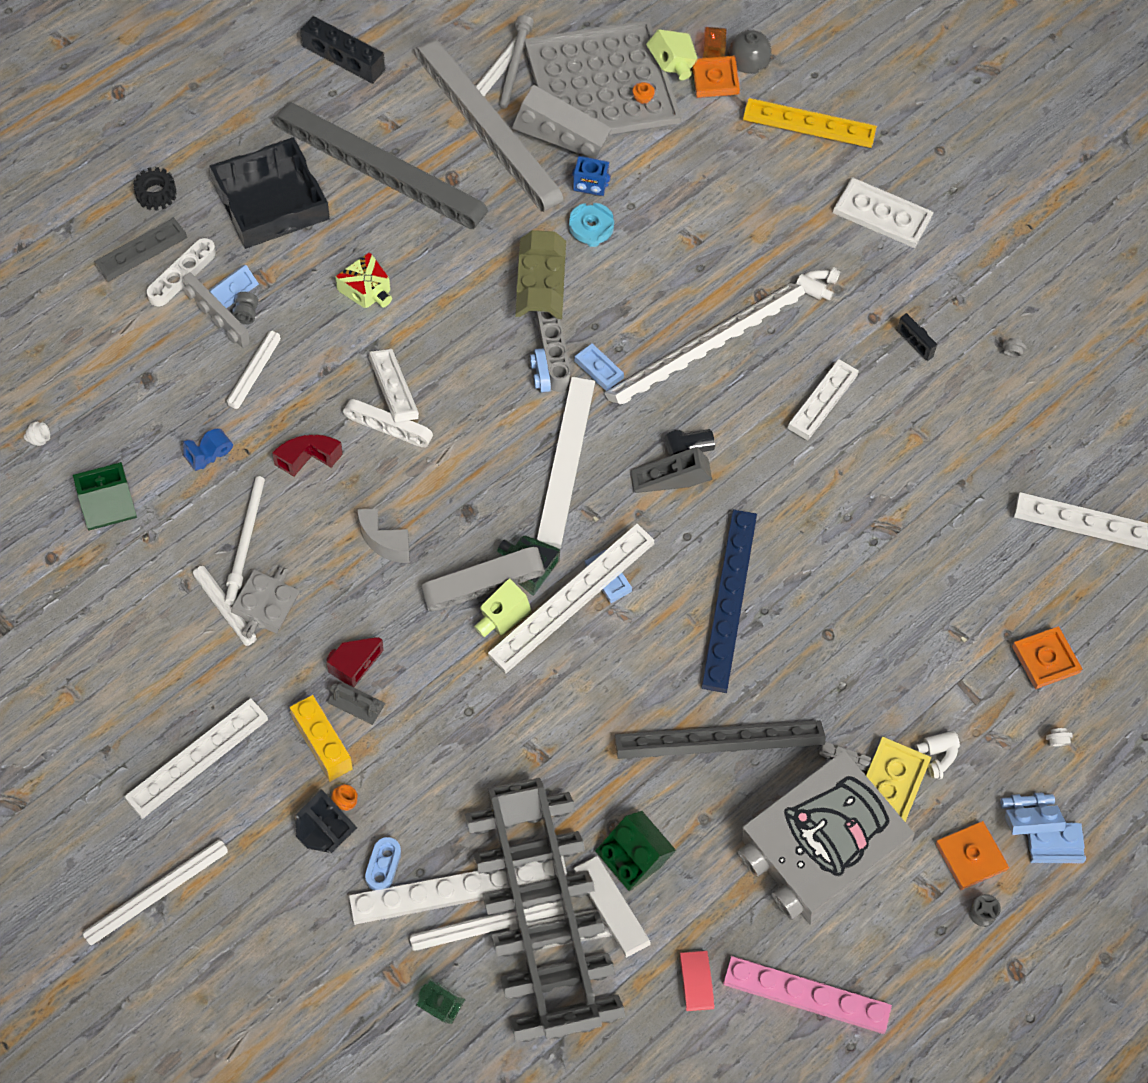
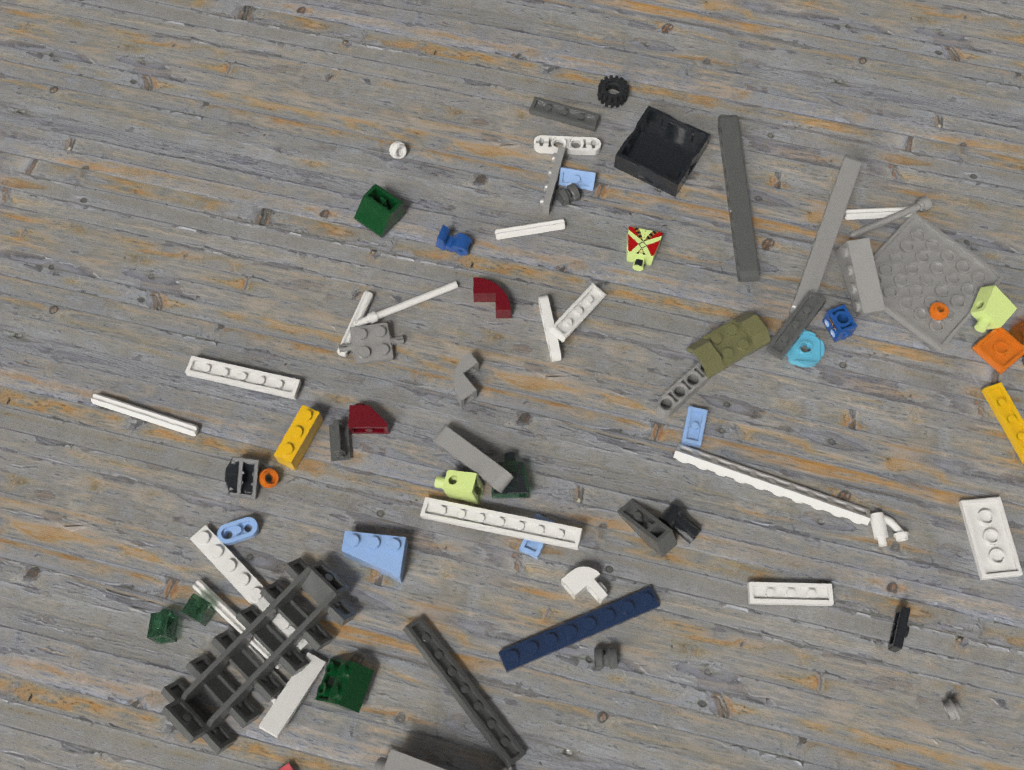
camera: 60 degrees right, 5 degrees up
(342, 49) = (805, 117): black brick -> none
(449, 950) = (198, 609): none -> clear green brick
(516, 733) = (377, 552): none -> light blue wedge
(542, 378) = (653, 396): light blue plate -> none
(566, 210) = (795, 325): none -> dark grey plate
(566, 462) = (605, 453): white tile -> none
(687, 560) = (584, 578): none -> white brick
(777, 590) = (605, 658): none -> dark grey wheel

